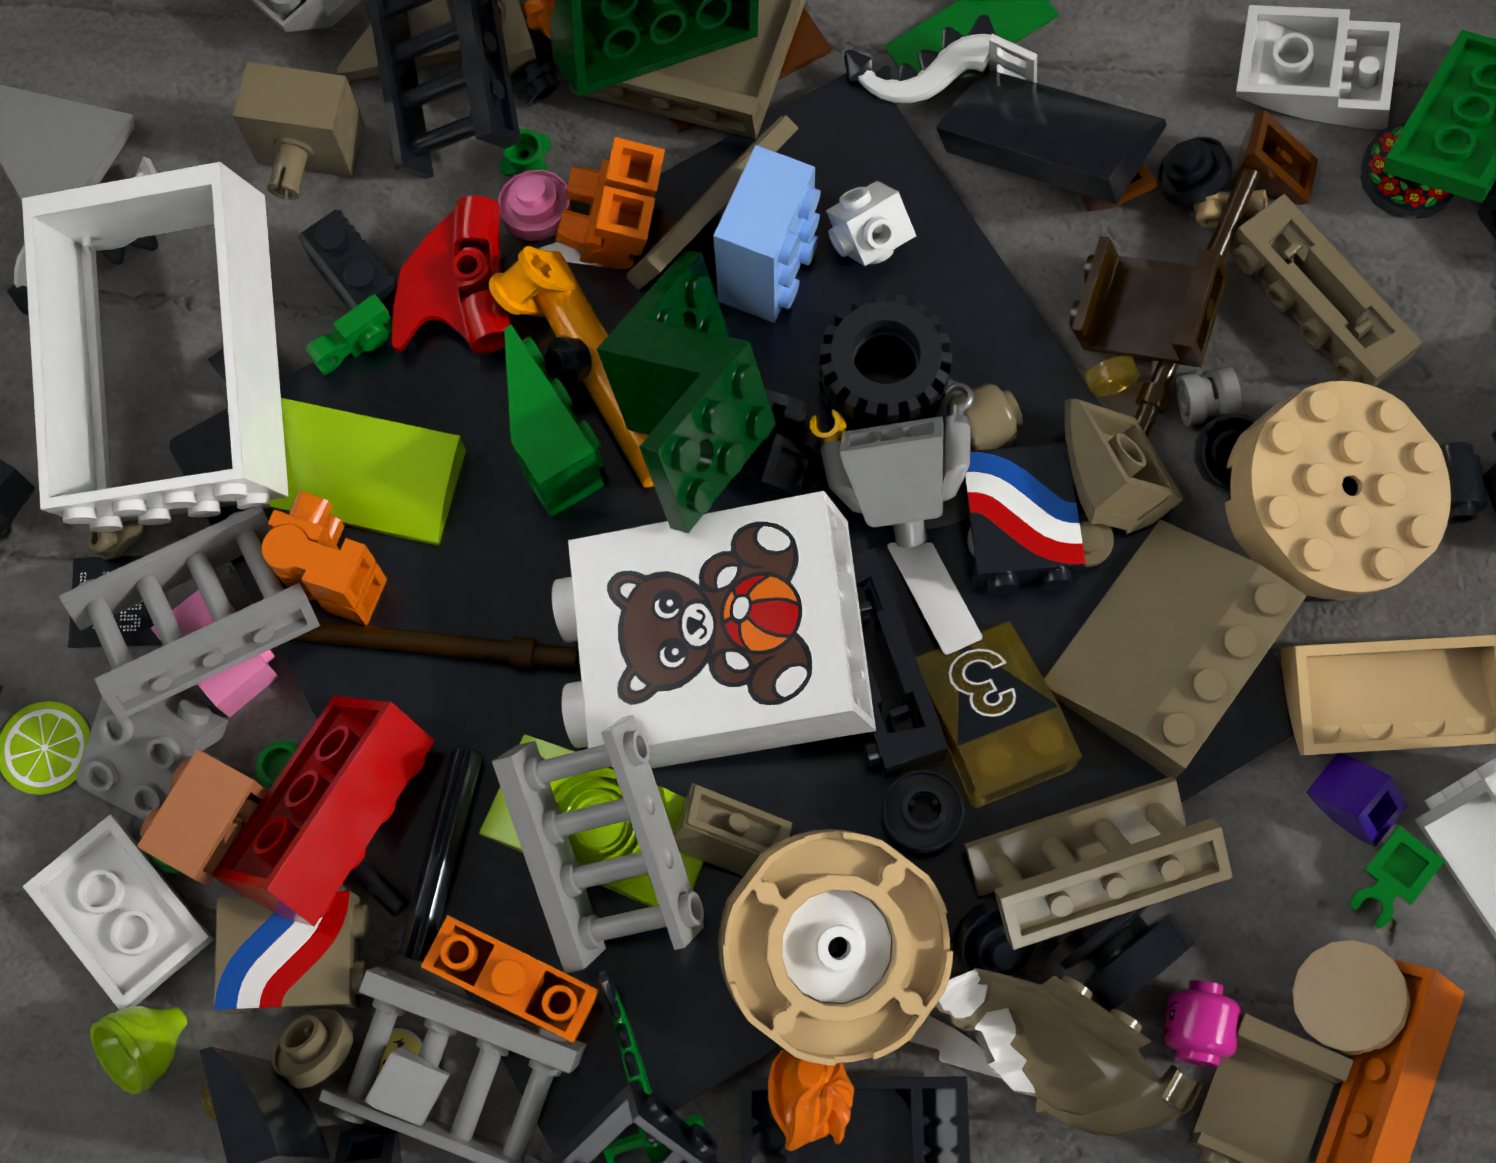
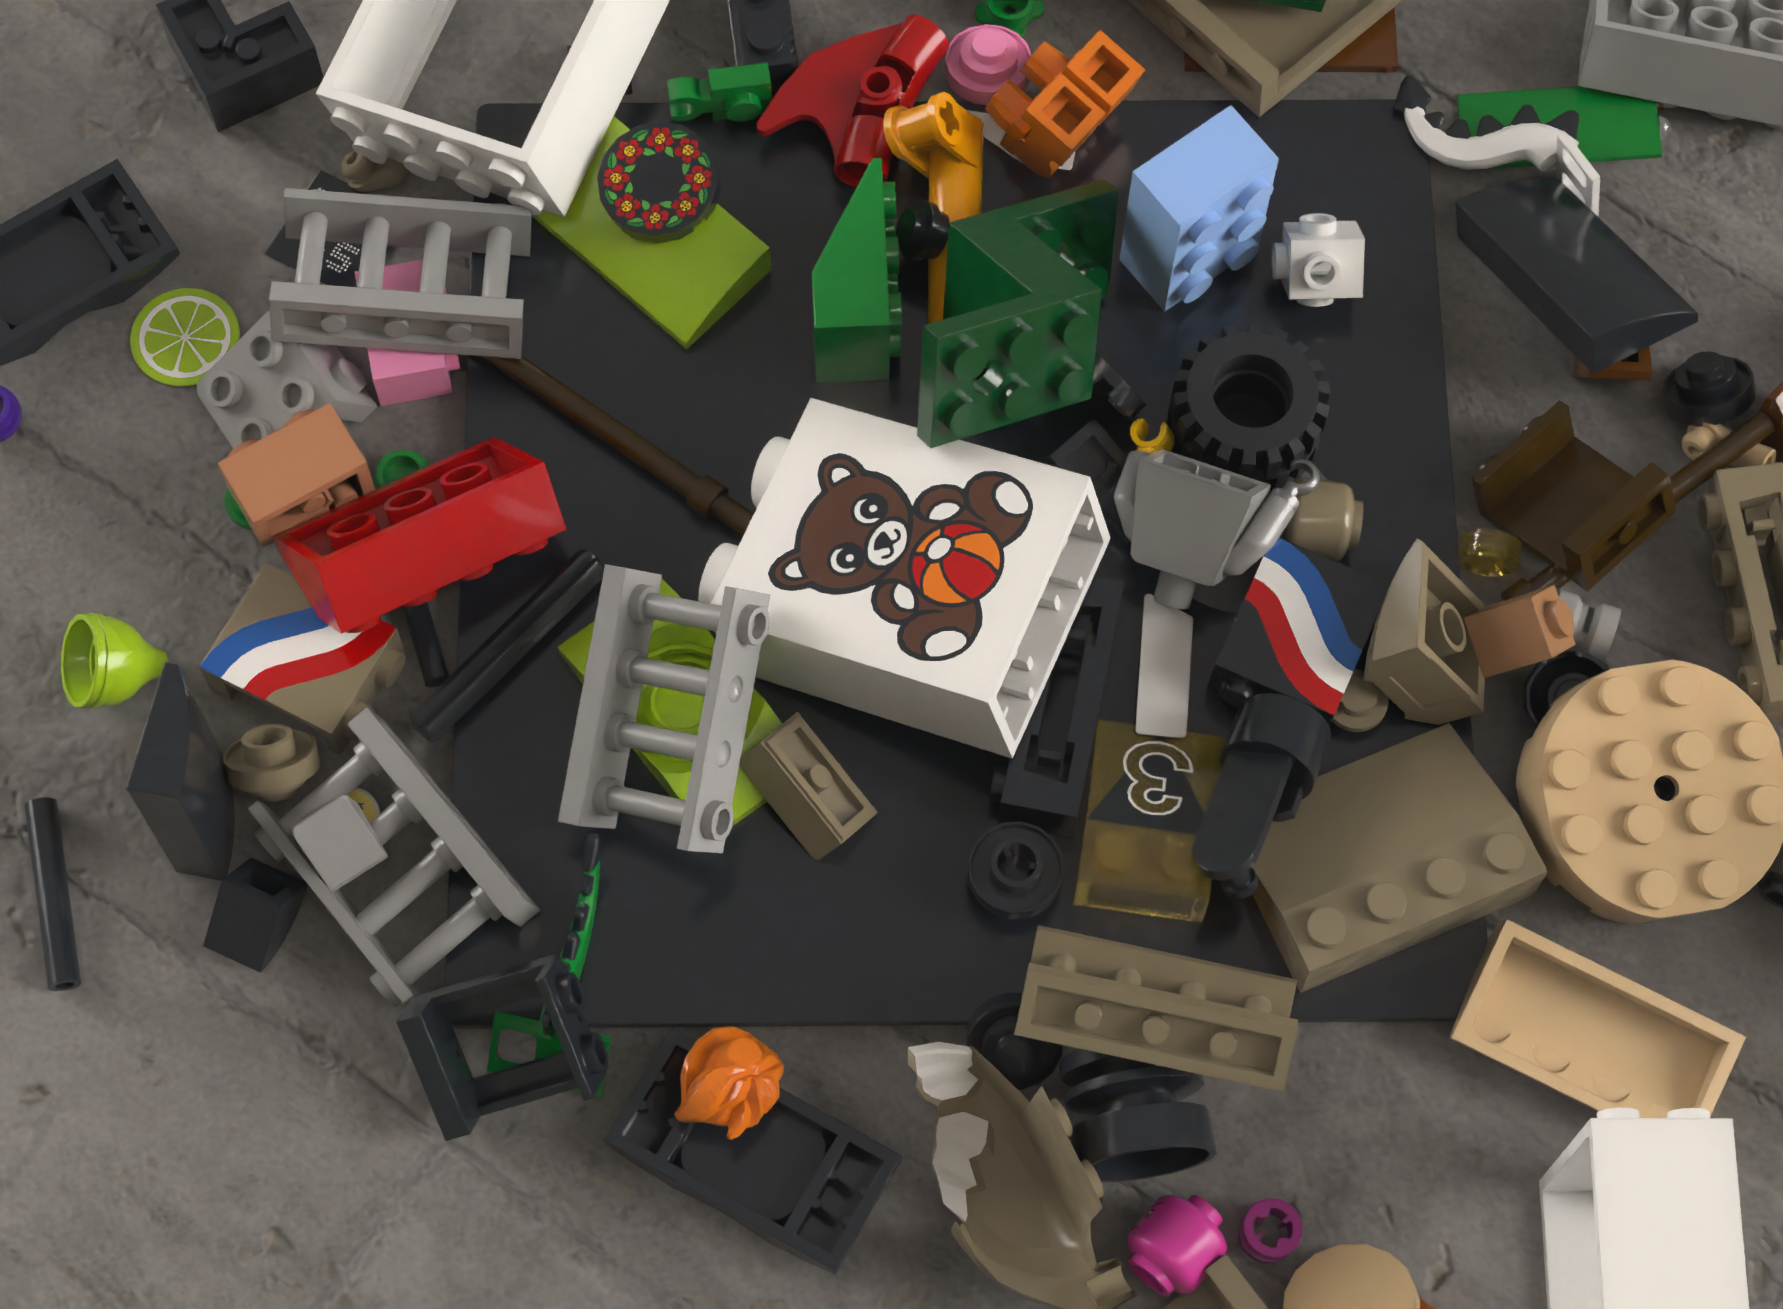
camera: 25 degrees right, 5 degrees down
(118, 913) = (162, 530): white plate -> none
(306, 551) = (561, 294): orange hips -> none
(346, 431) = (659, 182): none -> tile
(510, 979) = (500, 795): orange slope -> none
(705, 207) = (1120, 161): dark tan tile -> none
(889, 957) = (853, 877): tan piece -> none
(953, 1046) = (891, 1097): white sticker -> none
(1061, 628) = (1263, 778): none -> black piece
(1175, 424) = (1520, 631): none -> medium nougat brick
(1269, 981) = (1256, 1215): none -> magenta bush
(1358, 798) = (1487, 1120): dark purple brick -> none
(1400, 869) = (1486, 1214): green plate -> none

